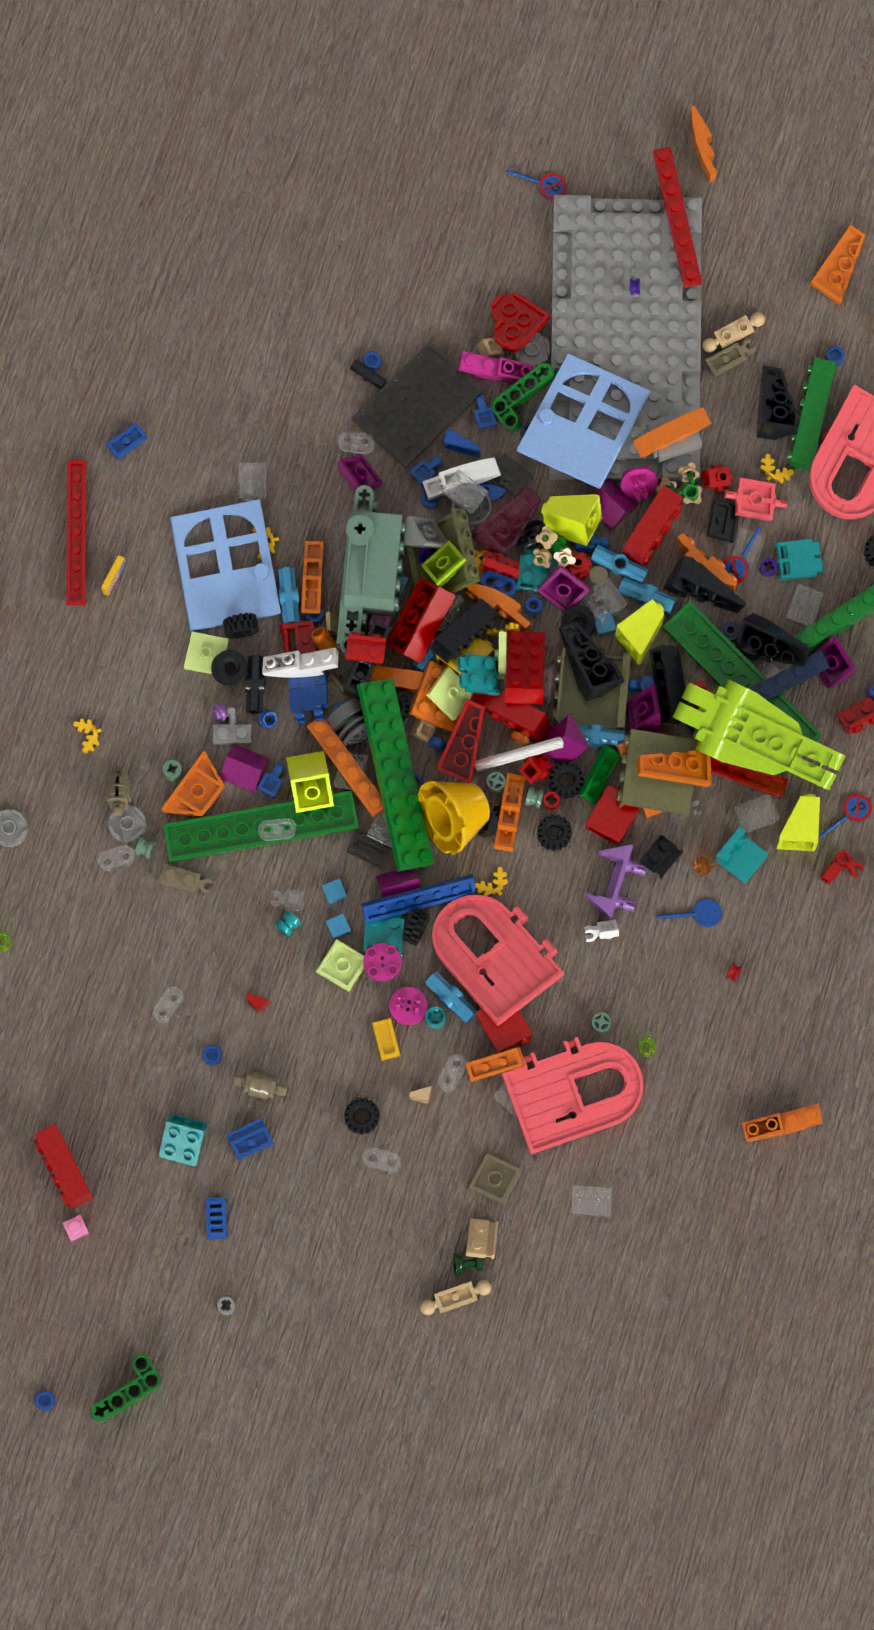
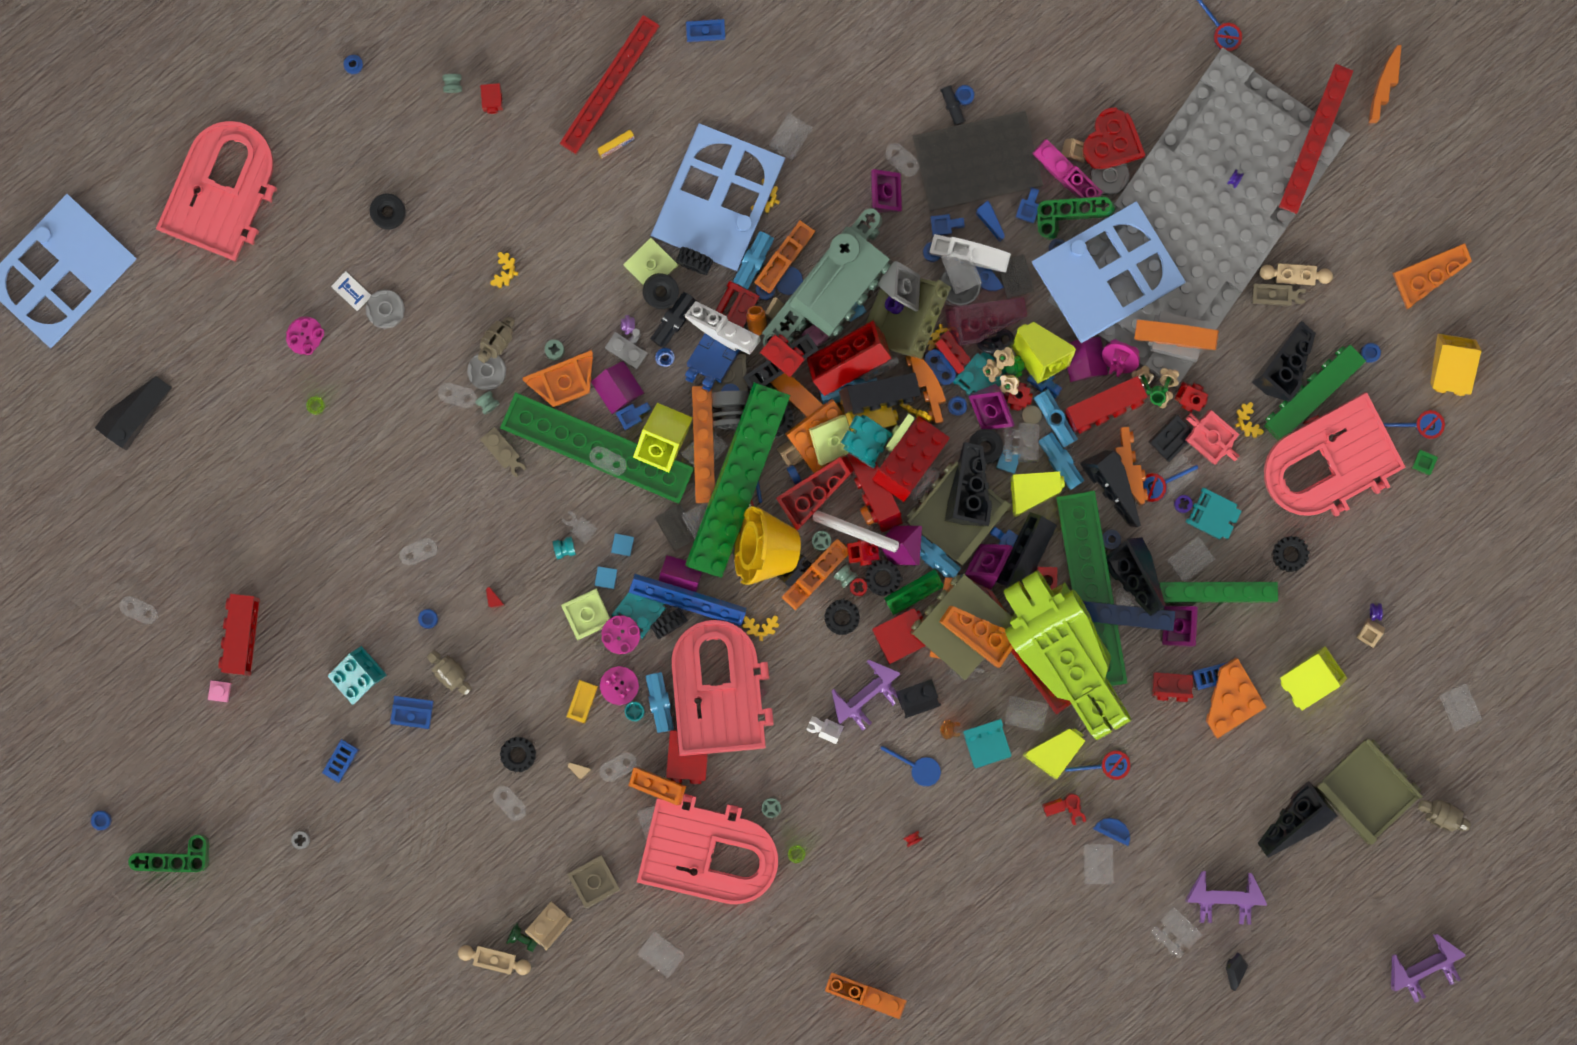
camera: 30 degrees right, 10 degrees up
(330, 595) = (790, 281): none -> blue piece
(444, 563) = (899, 323): lime slope -> none

